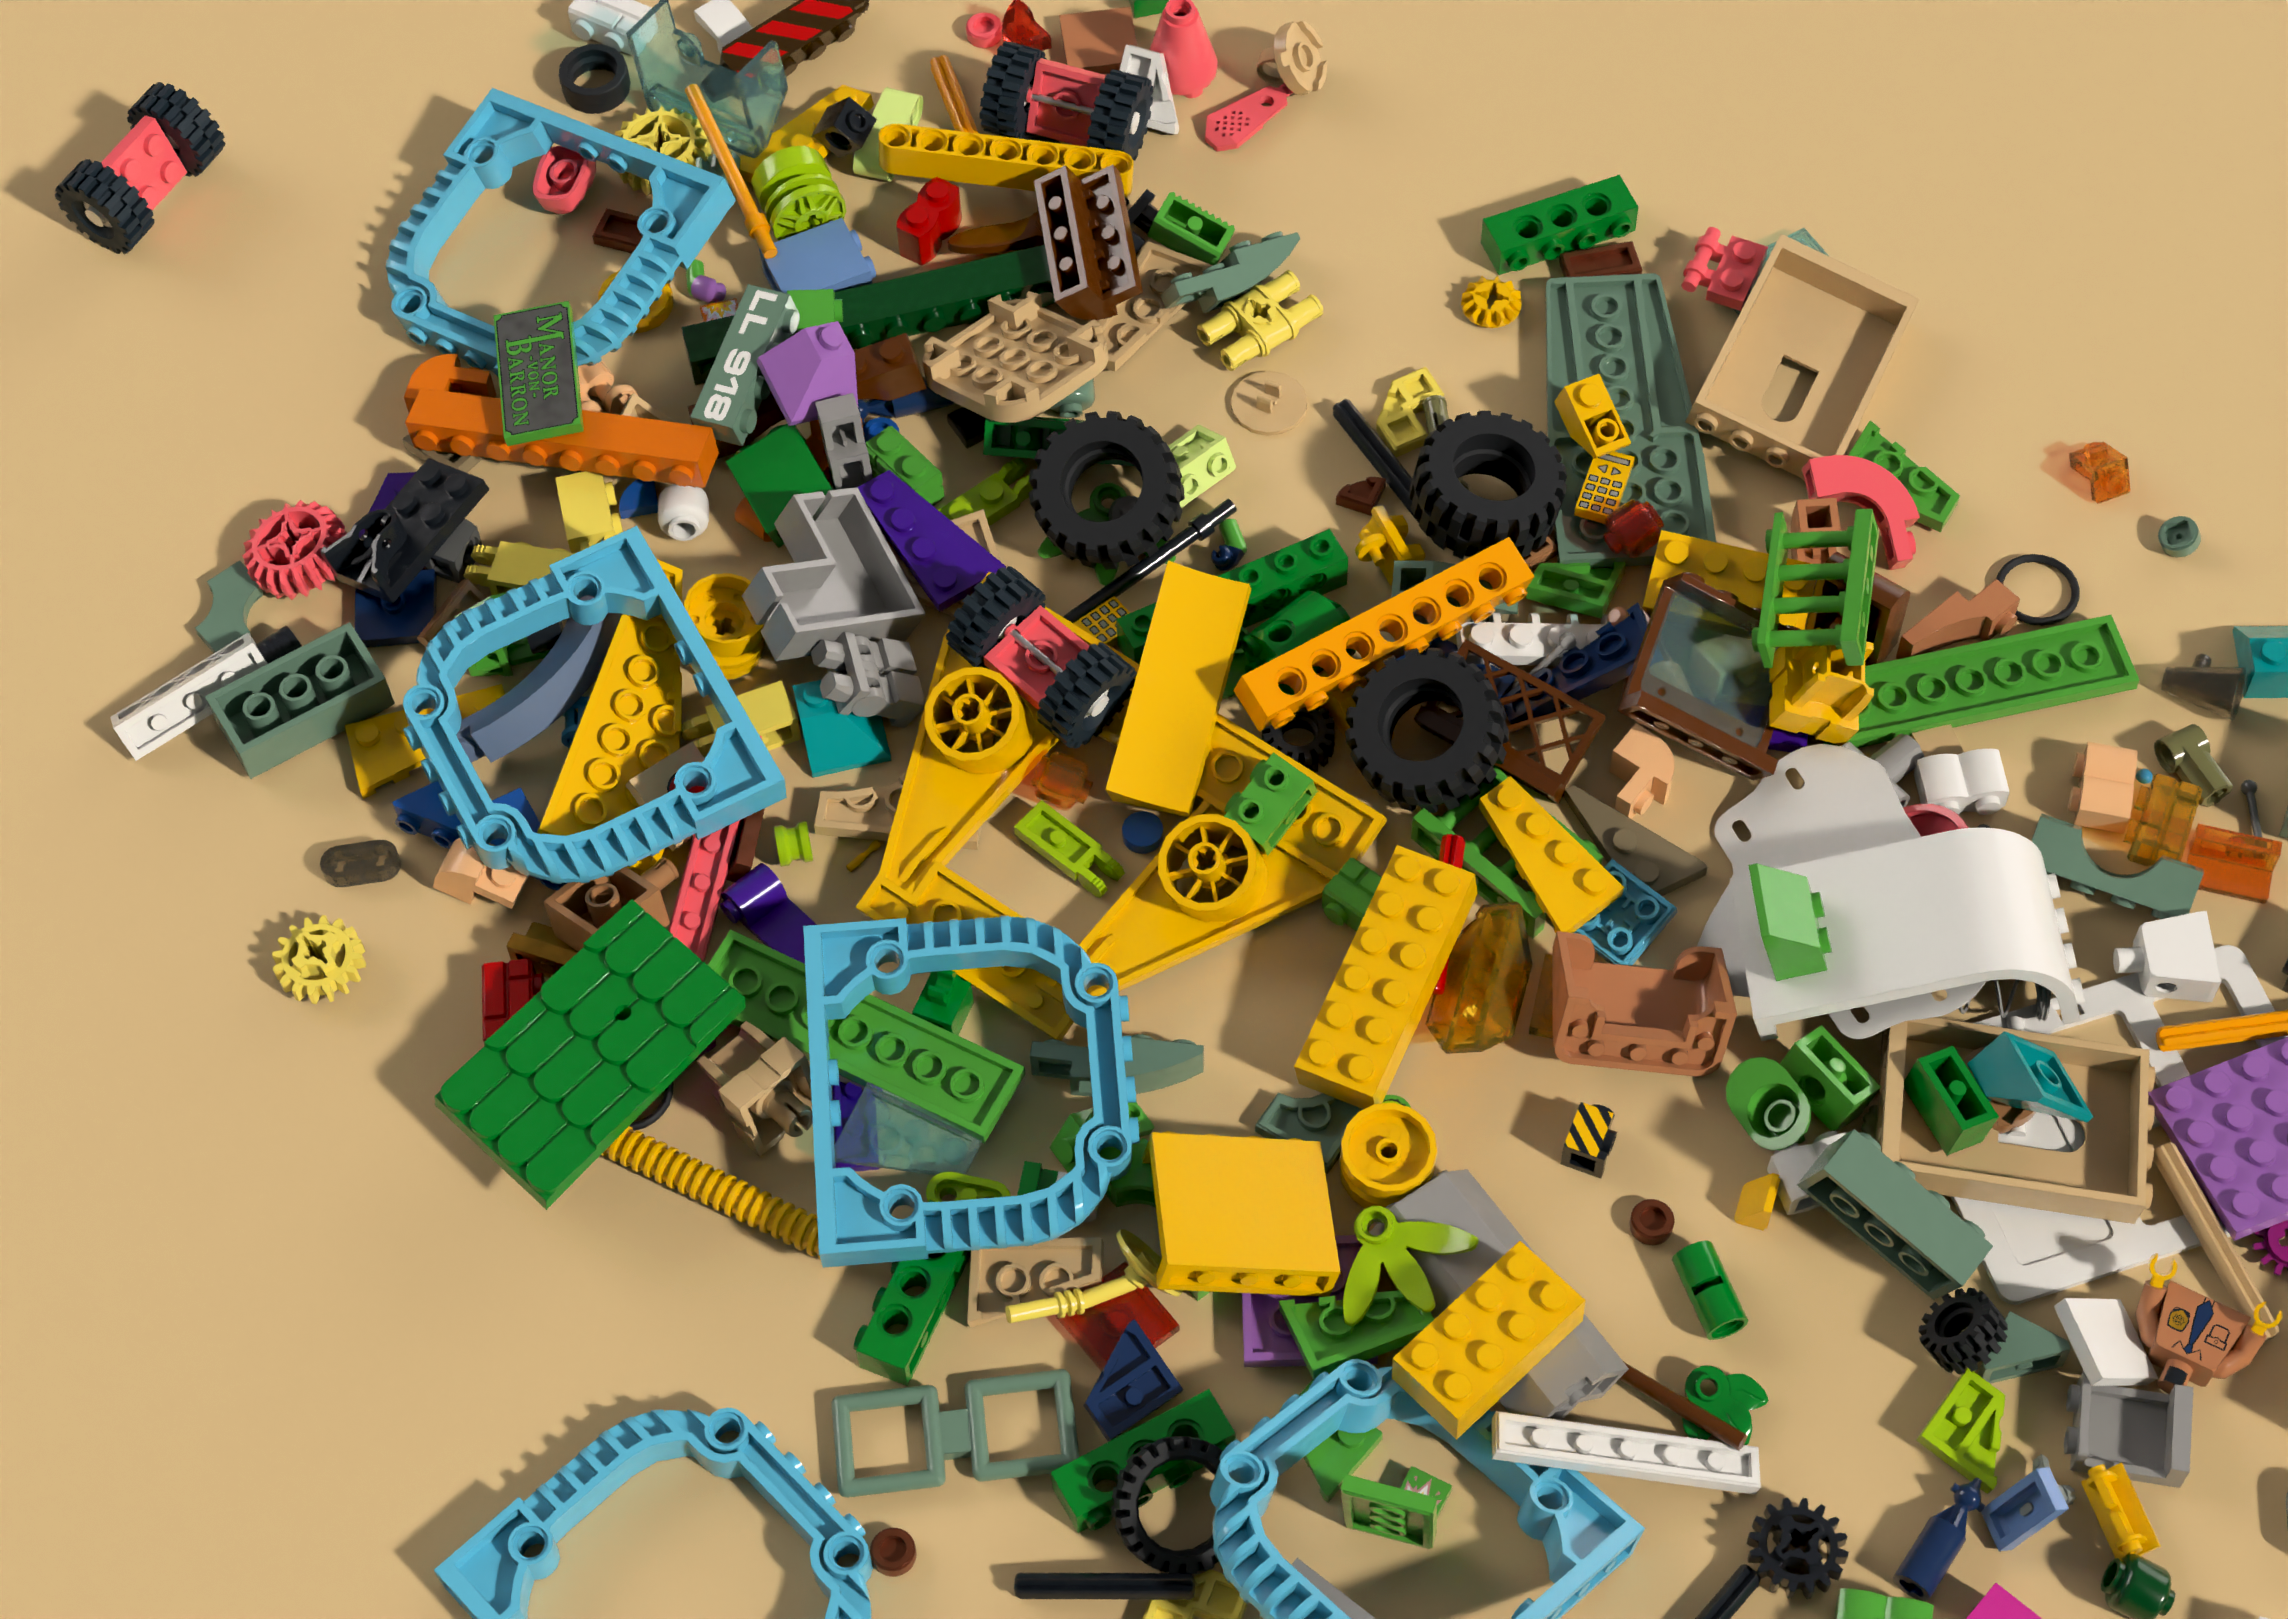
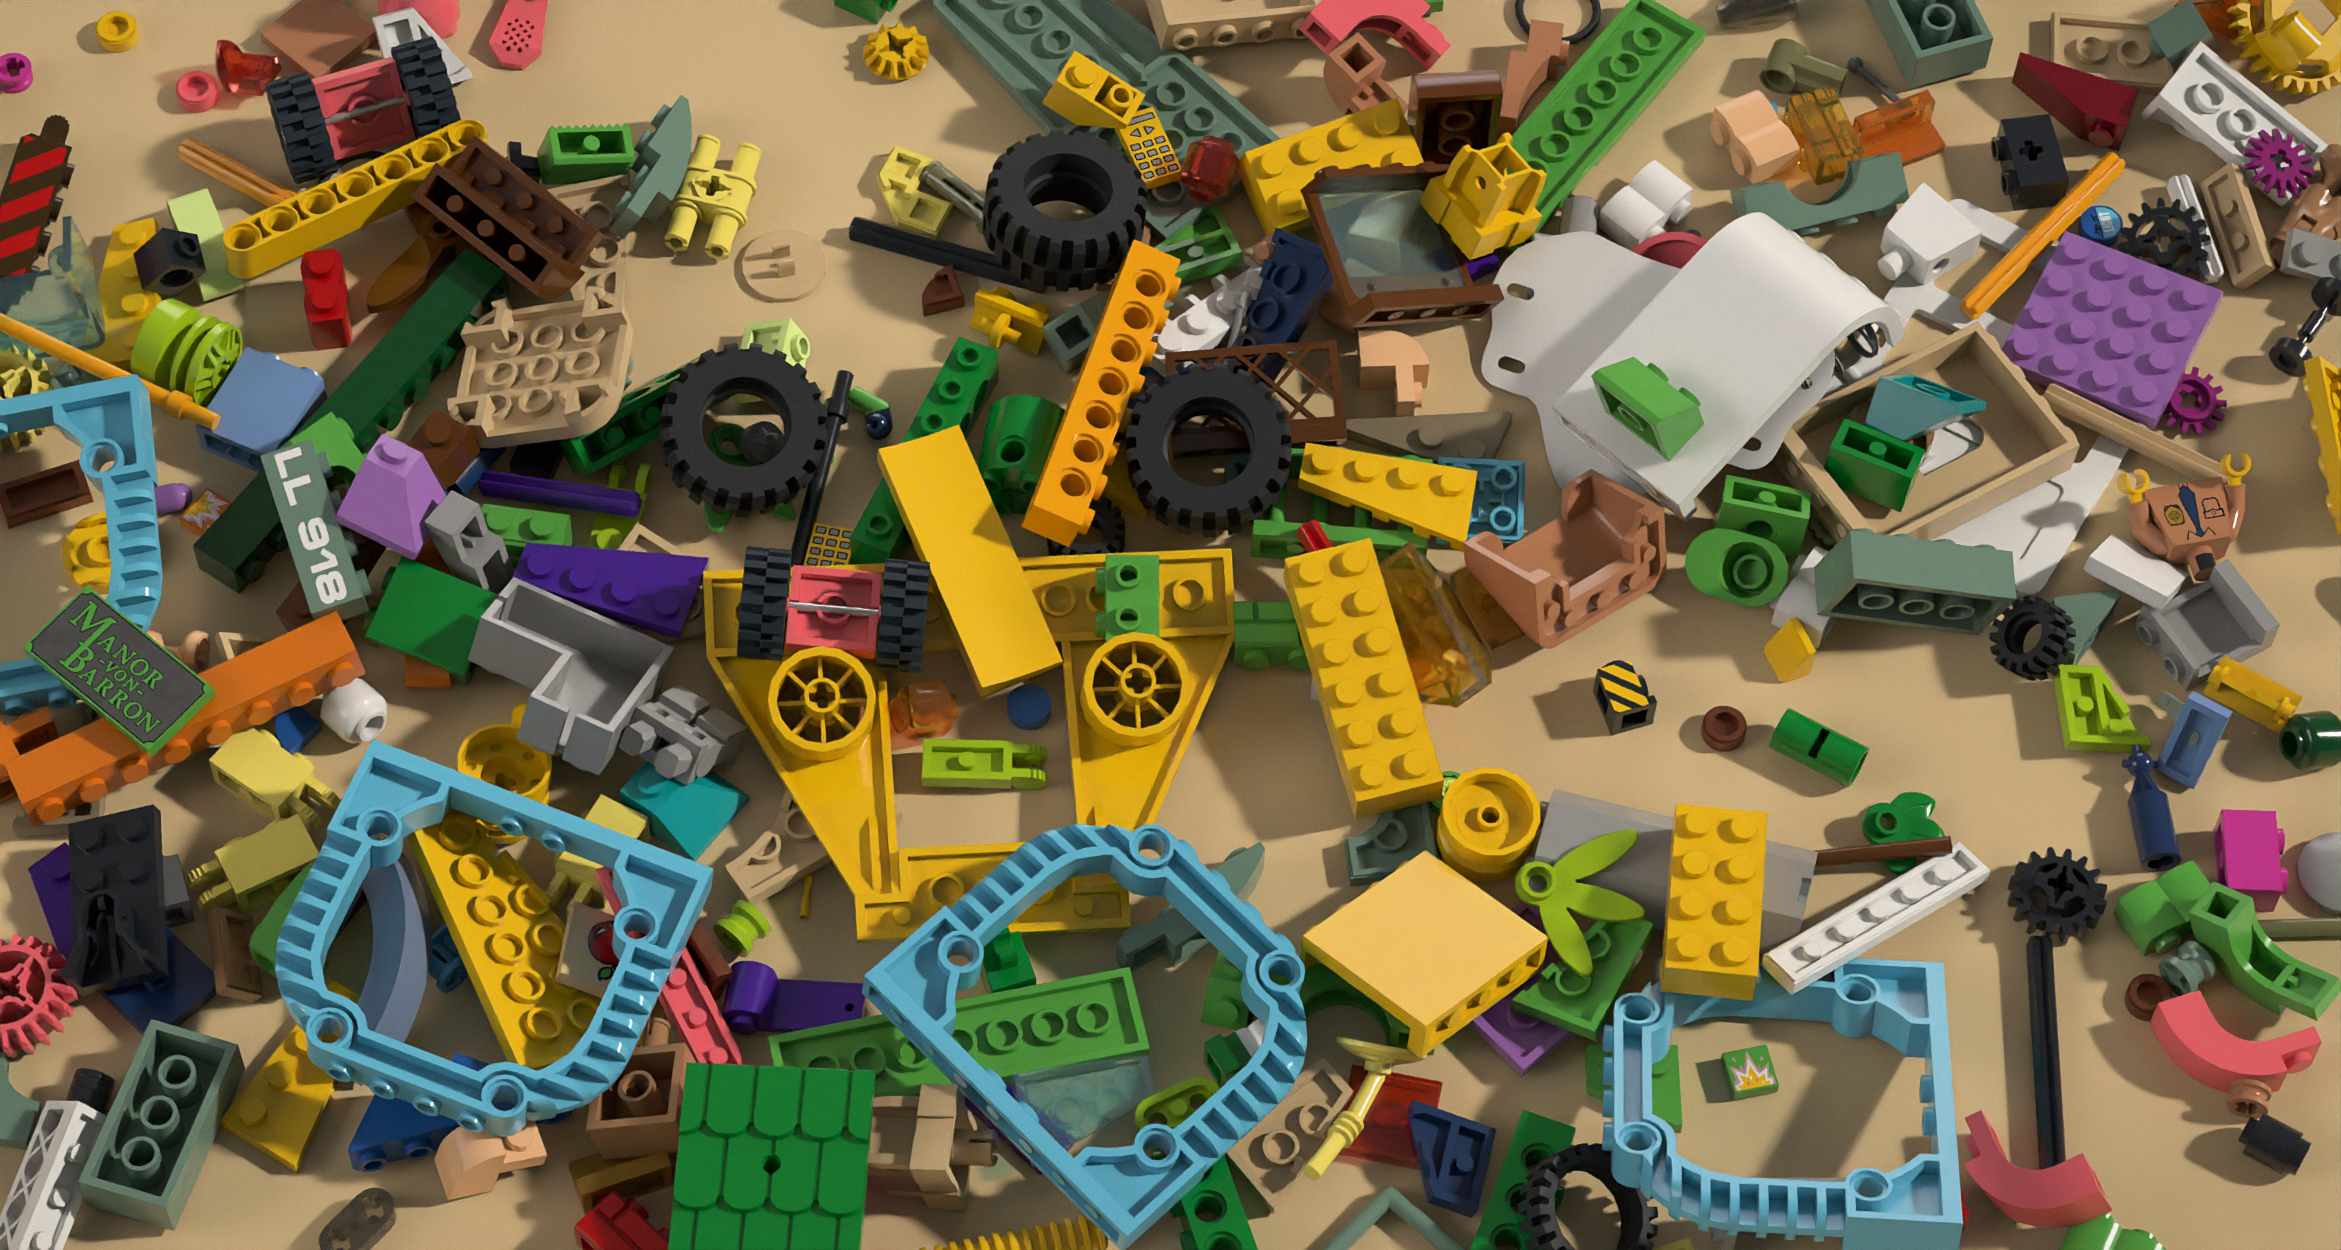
camera: 45 degrees left, 0 degrees up
(957, 457) = (560, 494): none -> dark purple axle
(1389, 1511) = (1764, 1089): bright green tile -> none
(1851, 604) = (1475, 108): bright green fence -> none

